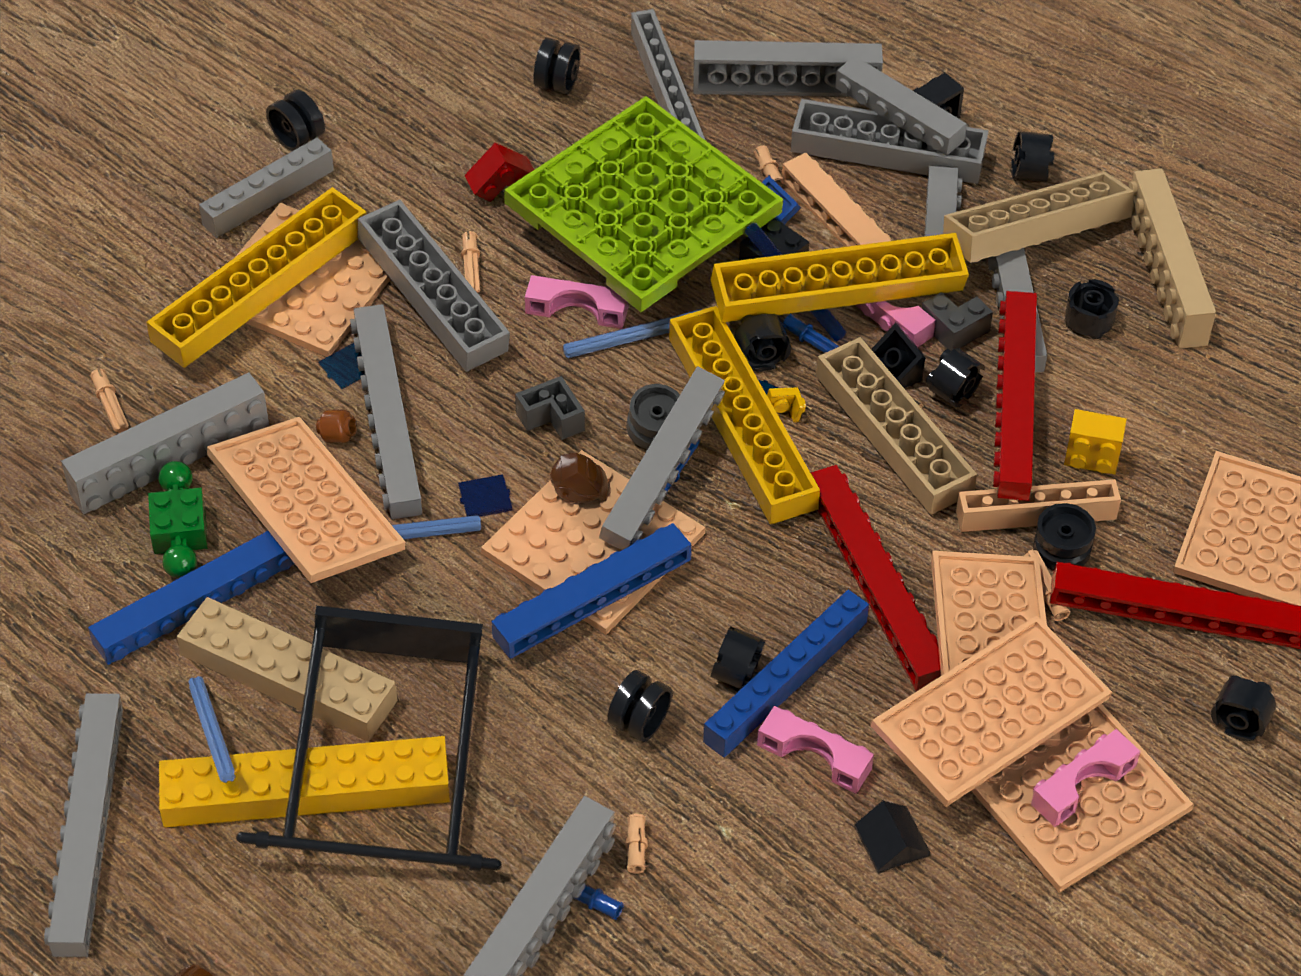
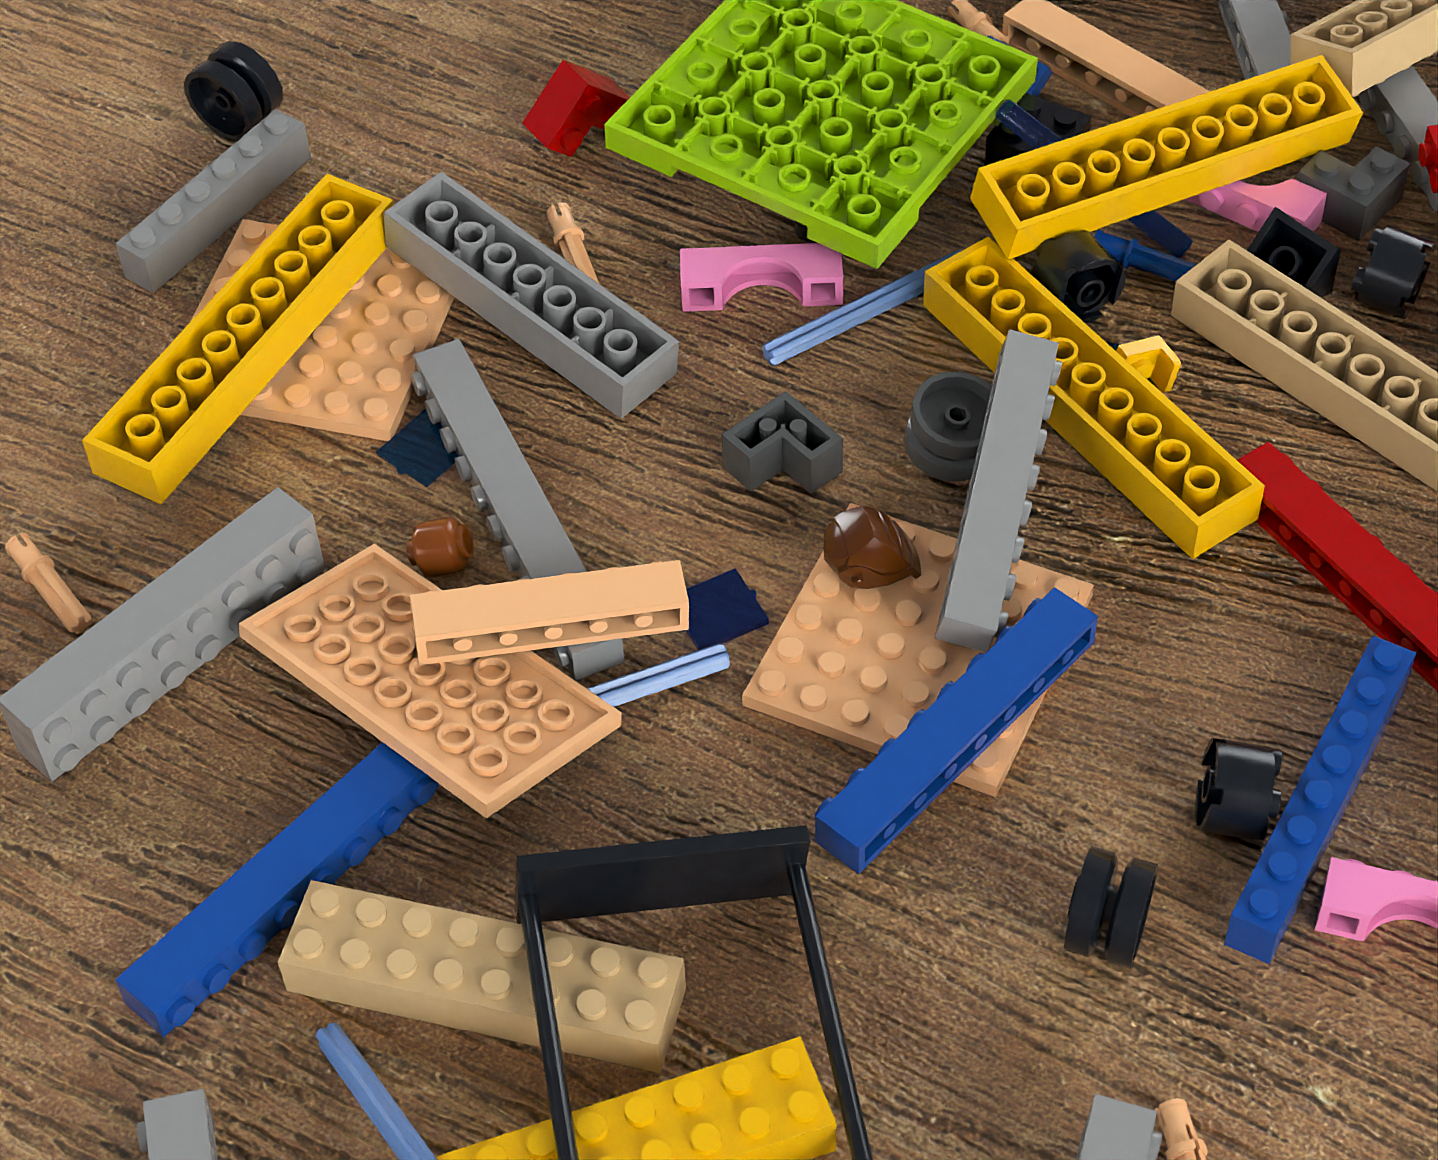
camera: 10 degrees left, 0 degrees up
(177, 520) = (220, 758): green brick -> none
(381, 476) = (549, 612): none -> light nougat brick

